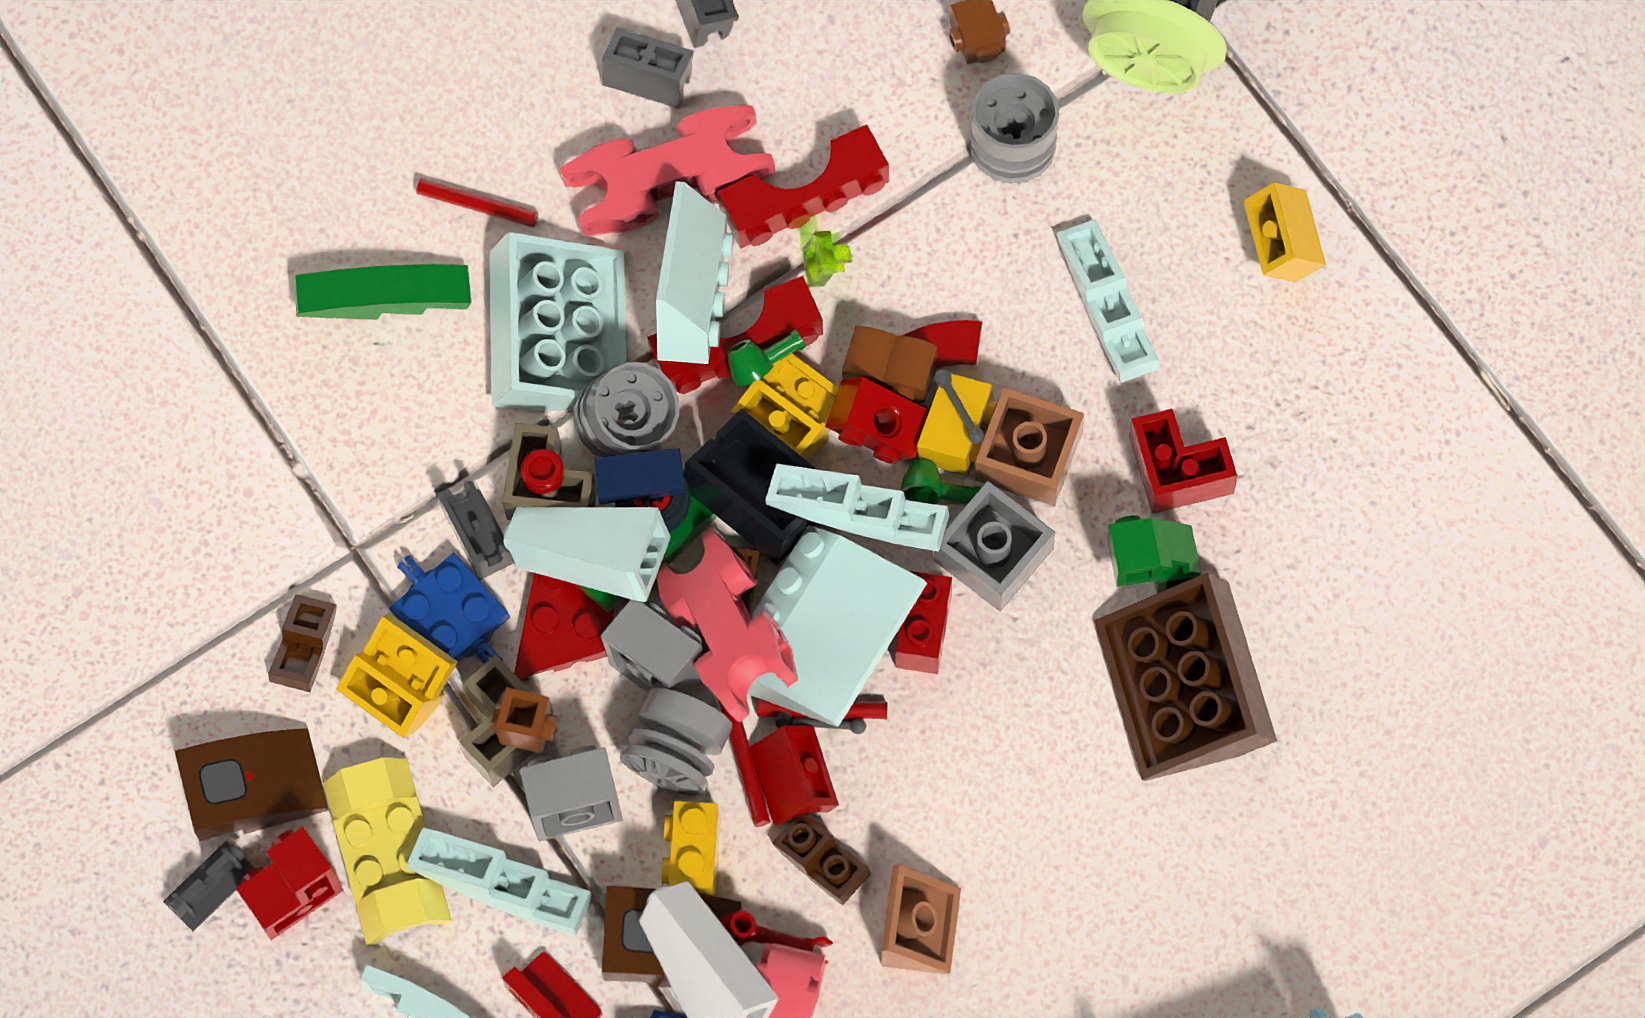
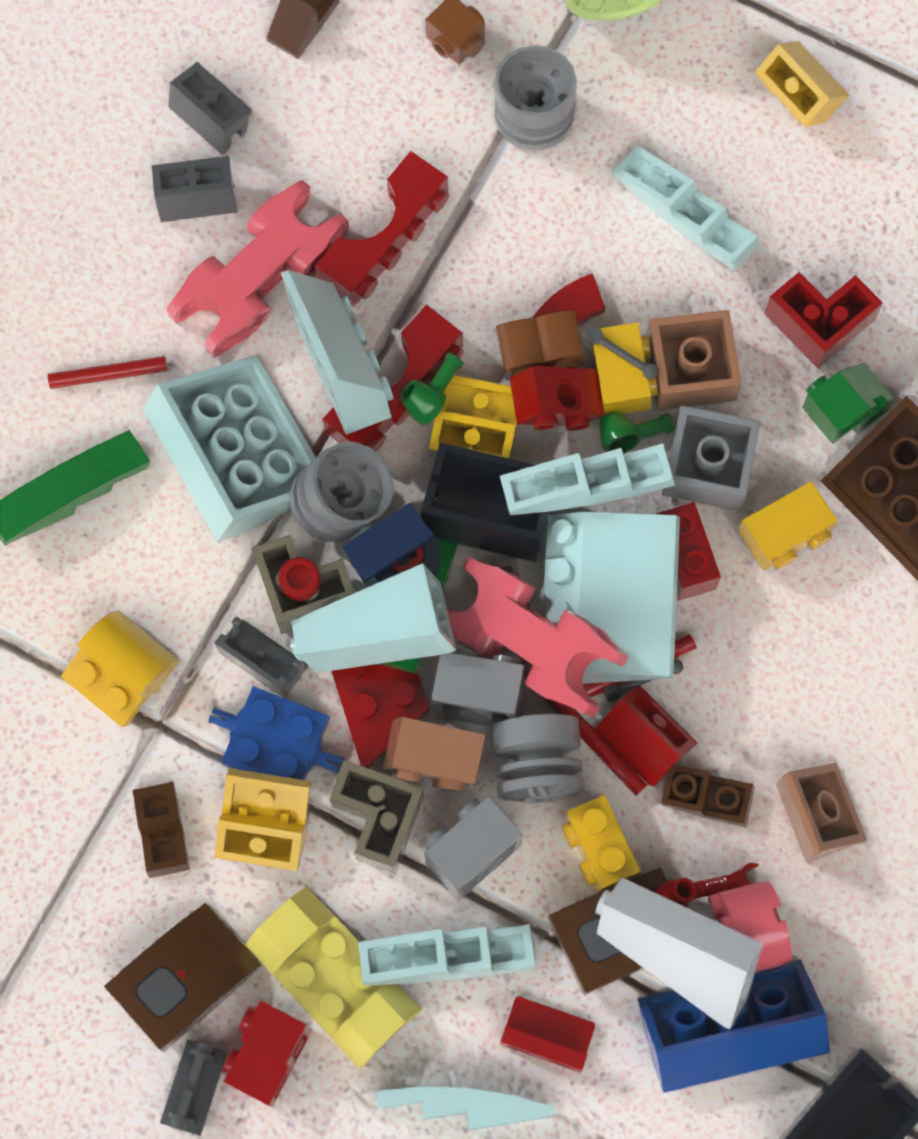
camera: 30 degrees left, 5 degrees up
(342, 477) = (119, 667): none -> yellow brick
(524, 720) = (407, 807): dark orange brick -> none
(581, 689) = (433, 752): none -> nougat brick
(823, 258) = (431, 281): clear neon green tile -> none
(1033, 646) = (788, 527): none -> yellow brick

